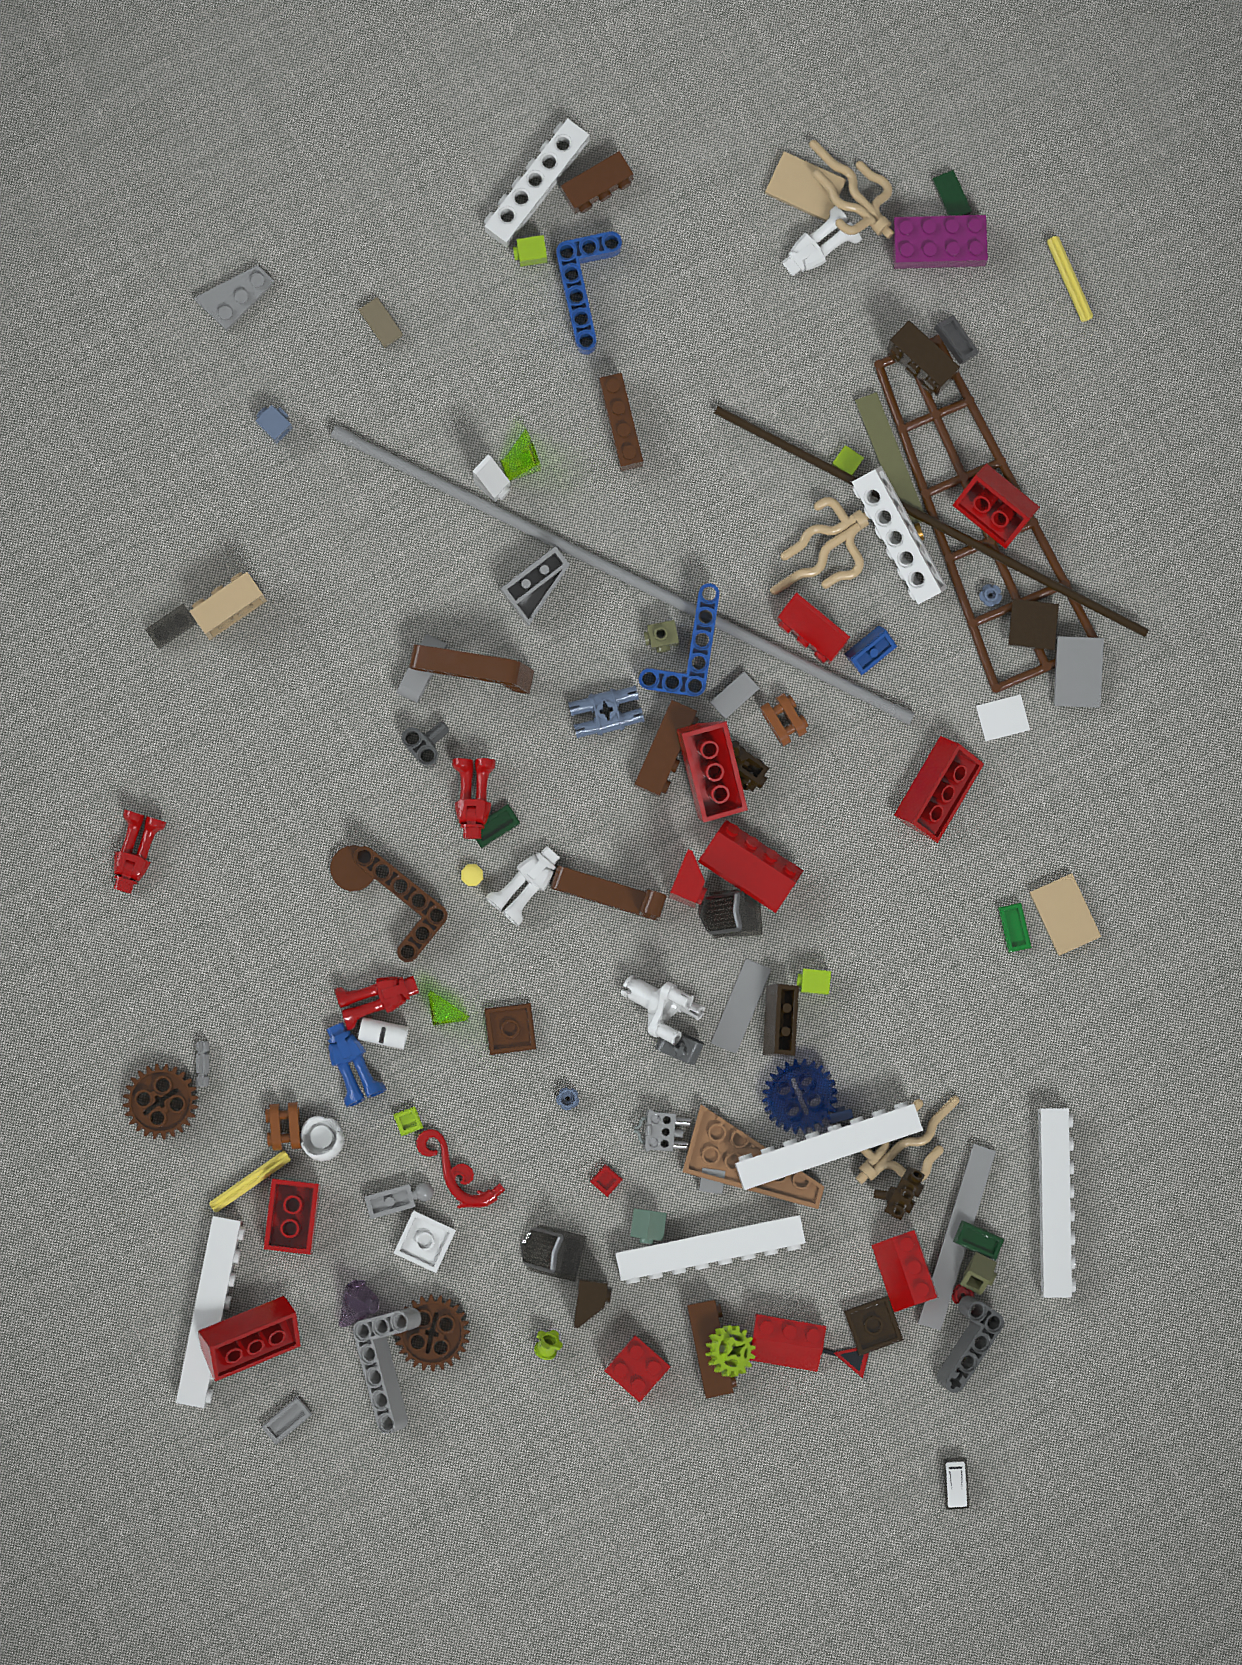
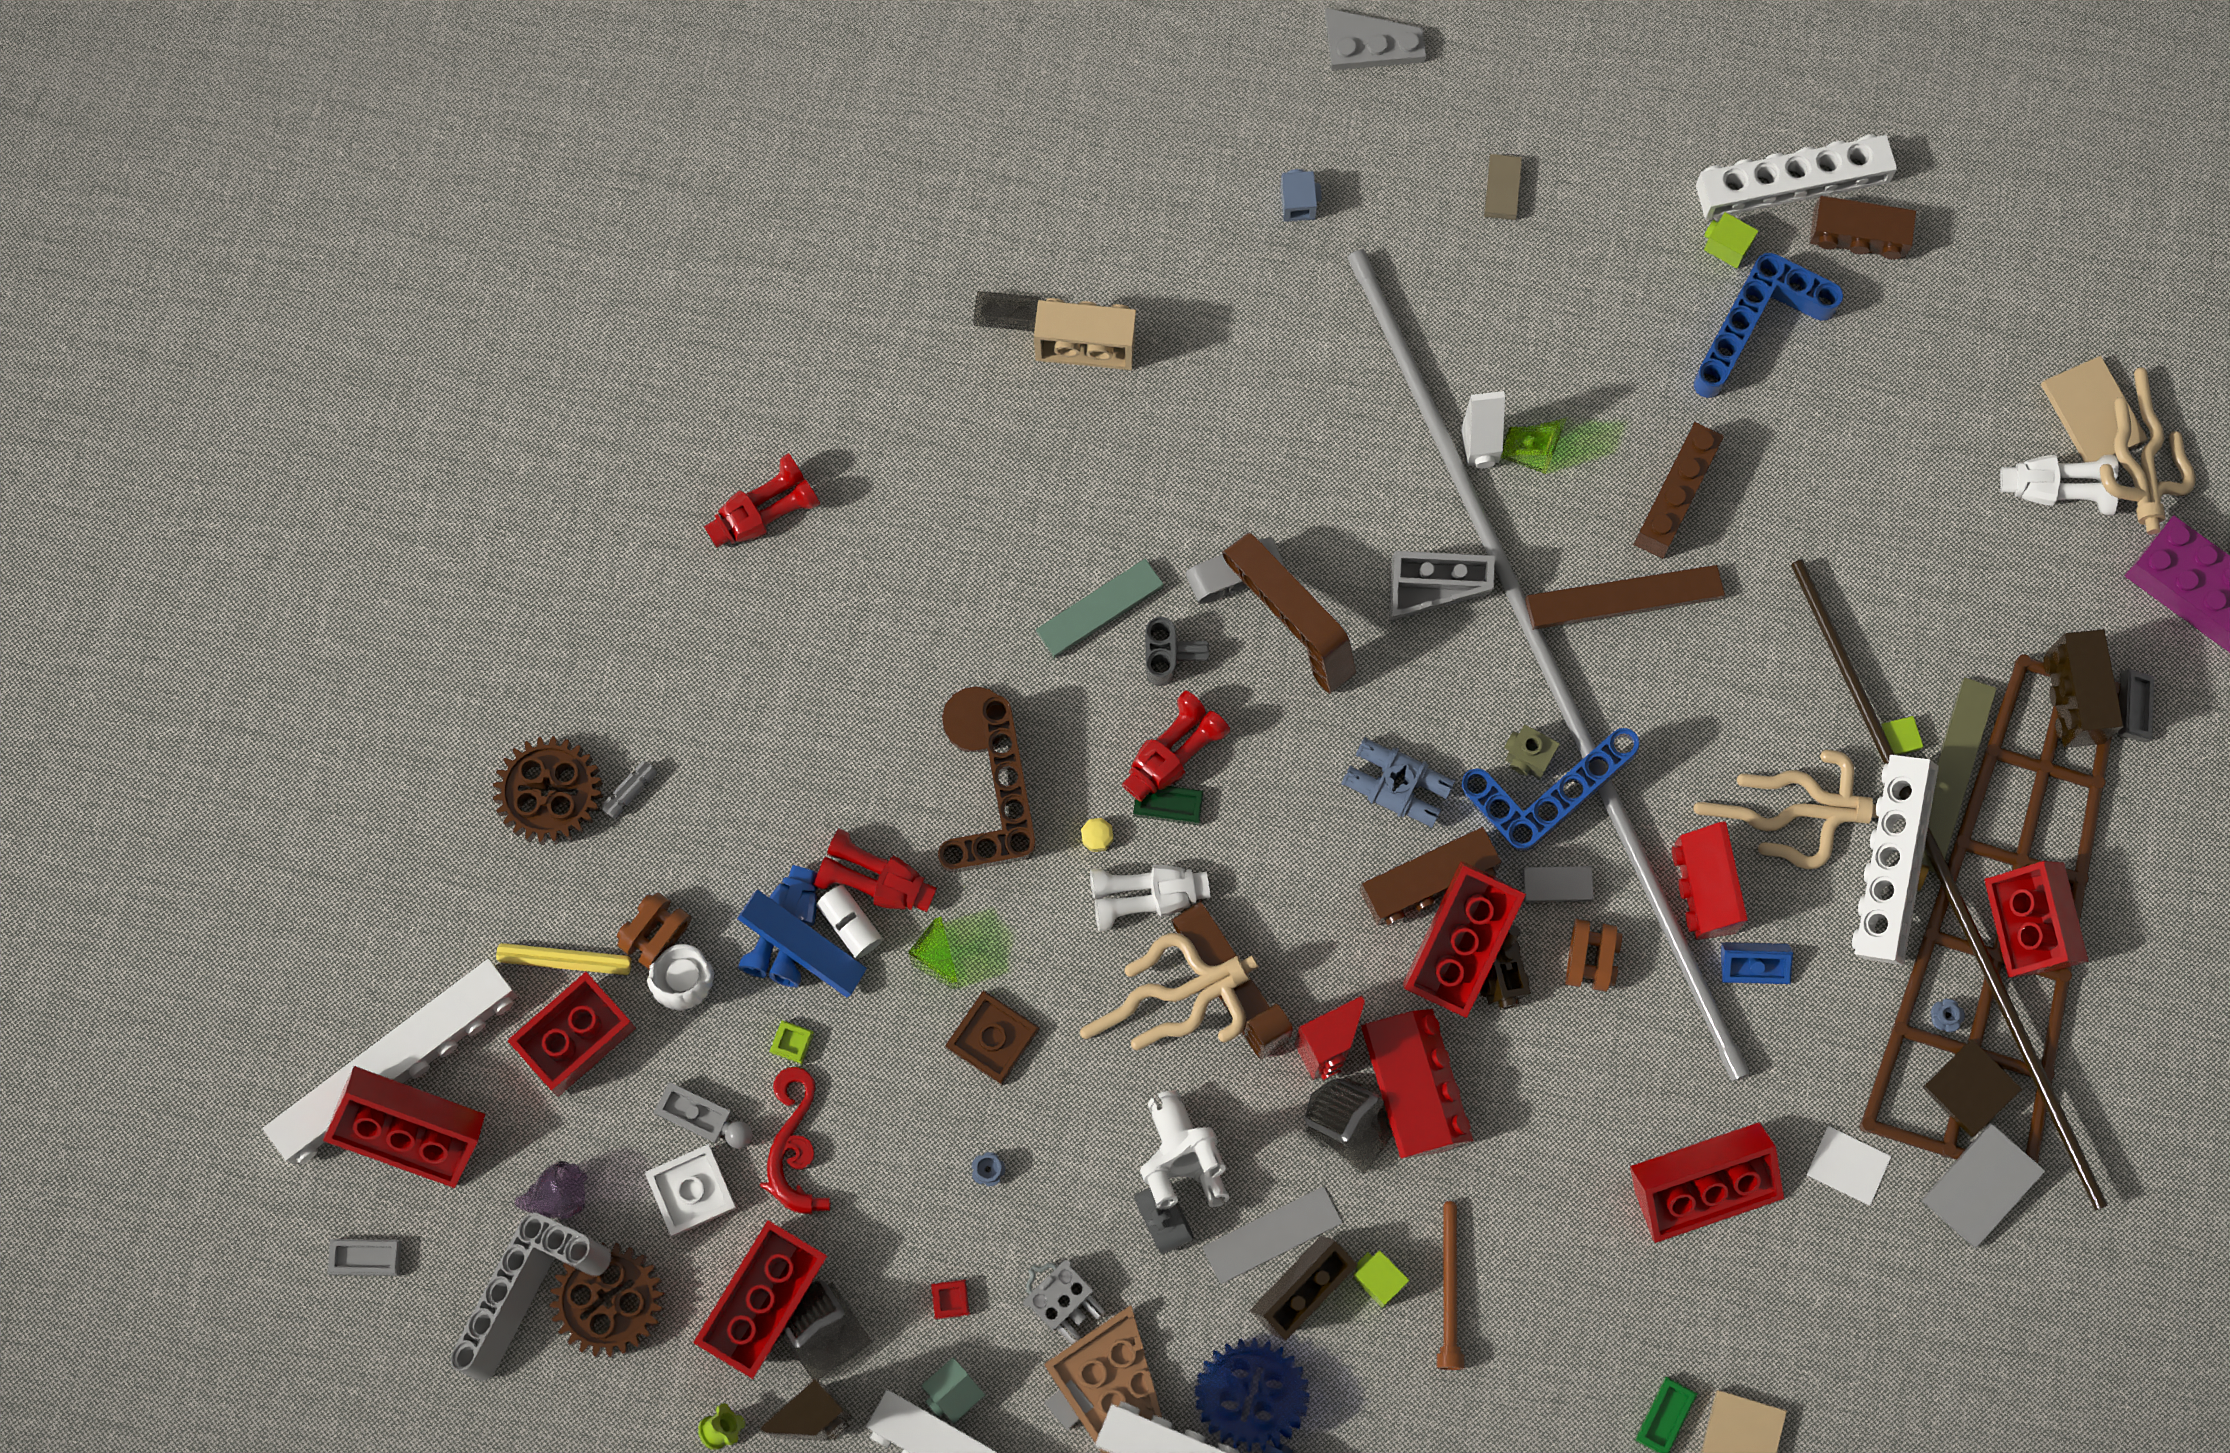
camera: 45 degrees right, 10 degrees down
(366, 750) = (1099, 608): none -> sand green tile
(370, 1066) = (802, 943): none -> blue tile
(512, 1264) = (760, 1299): none -> red slope
(603, 901) = (1217, 979): none -> tan plant
(641, 507) = (1624, 597): none -> reddish brown tile
(881, 989) = (1450, 1354): none -> dark orange piece

